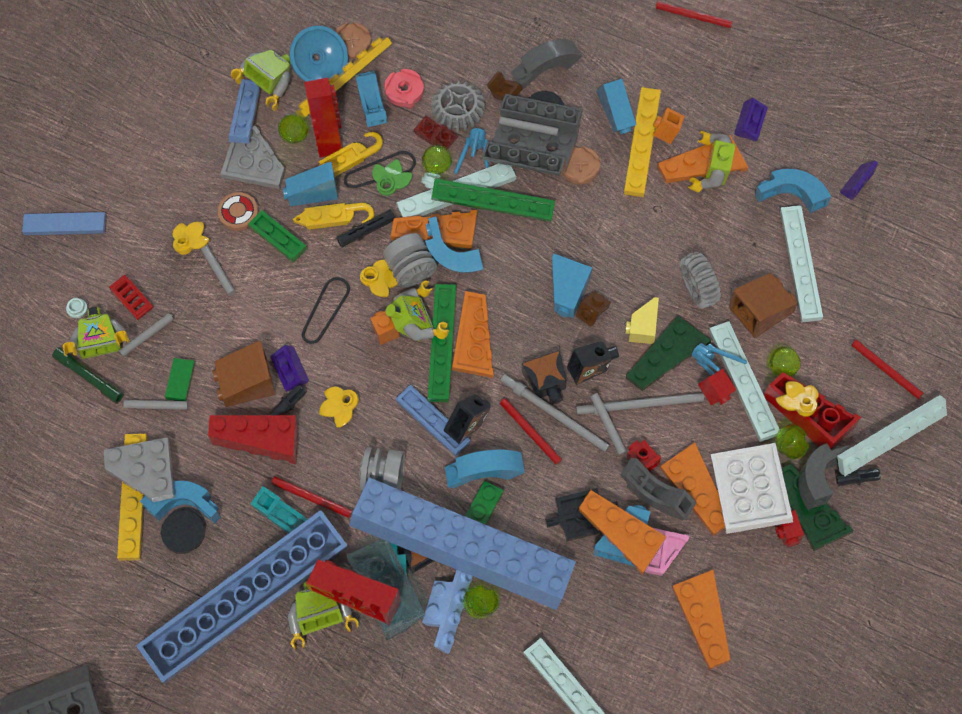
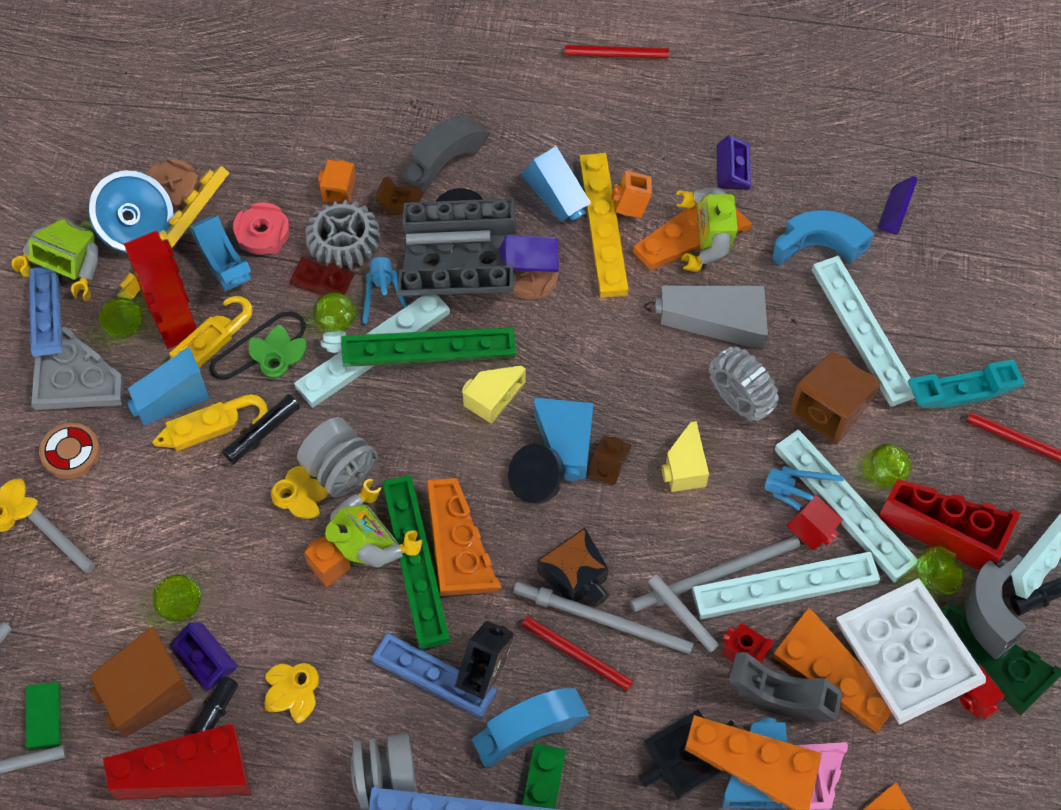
camera: 20 degrees left, 5 degrees down
(277, 236) = (136, 471): green plate -> none
(281, 326) = (177, 597): none -> clear neon green hair
(333, 315) = (247, 563): black piece -> none
(455, 229) = (369, 405): orange wing -> none
(455, 261) = (388, 440): dark azure arch -> none
(465, 66) = (337, 181): none -> orange brick
(528, 241) = (492, 391): none -> light yellow slope
(538, 305) = (535, 473): none -> black tile
(582, 151) = (530, 253): none -> dark purple slope
(590, 361) = (631, 532): black torso -> none
(666, 353) = (731, 490): dark green wing -> none
(684, 423) = (785, 585): none -> light aqua plate
(700, 224) = (718, 312): none -> light grey slope
(799, 398) = (935, 508): yellow plate -> none
(859, 322) = (966, 388): none -> teal slope

